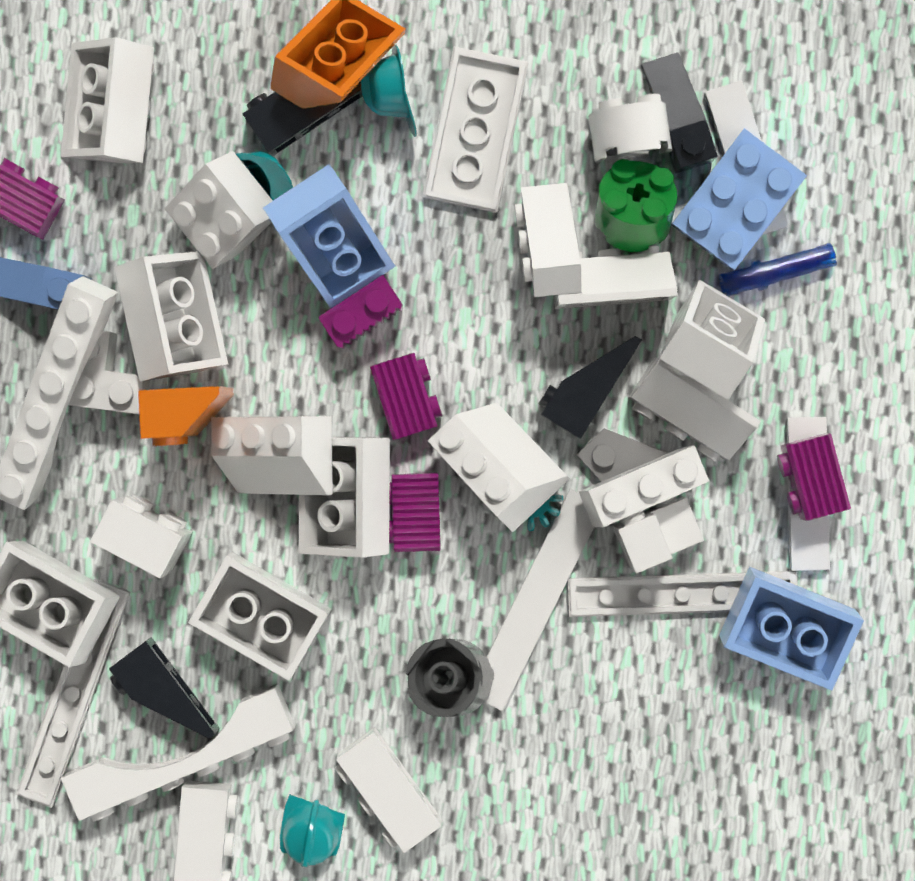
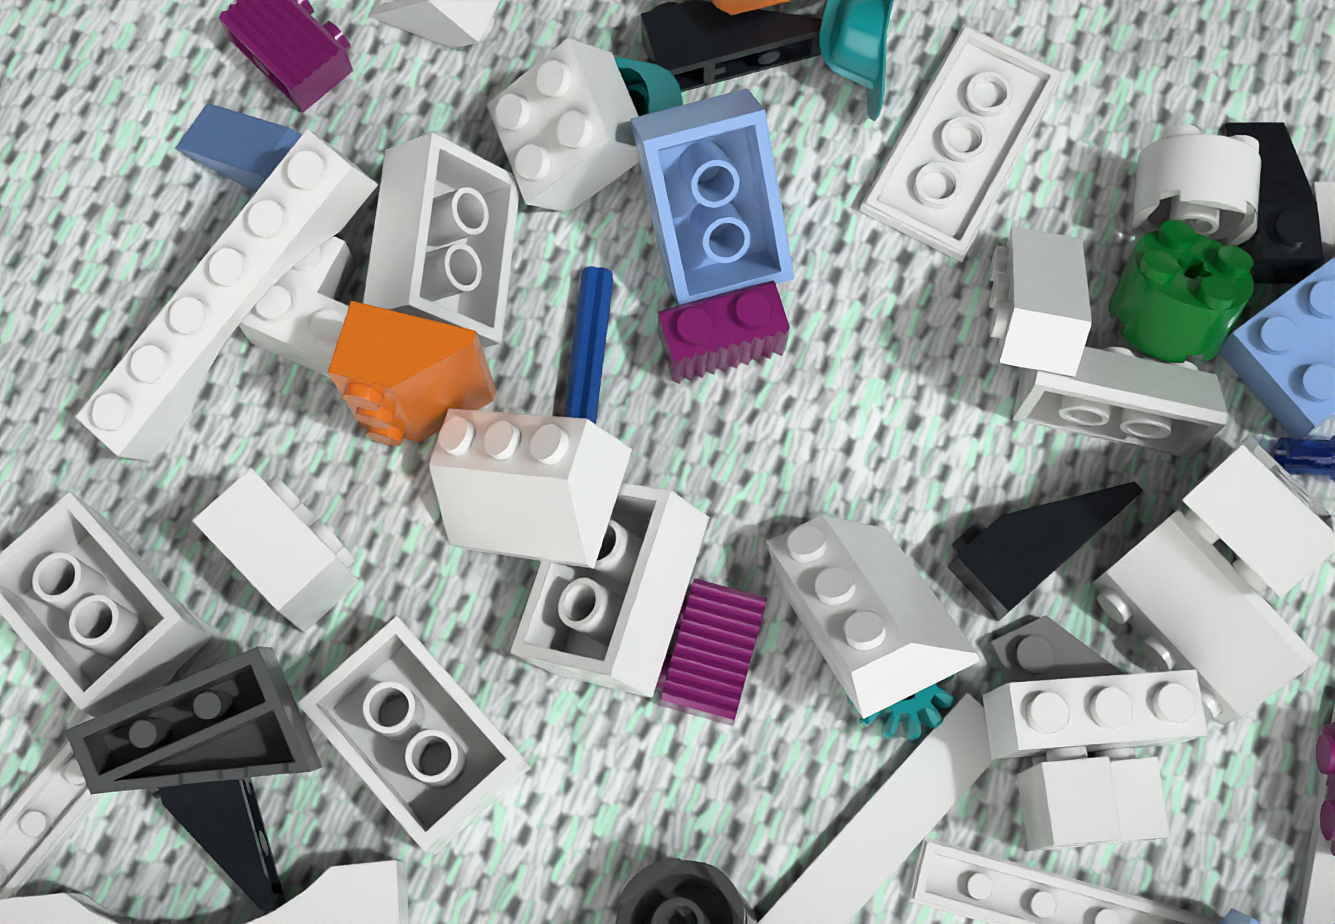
camera: 20 degrees right, 15 degrees down
(143, 655) = (204, 728): none -> dark grey wedge
(281, 346) = (589, 343): none -> blue axle
(405, 395) = (751, 471): magenta brick -> none

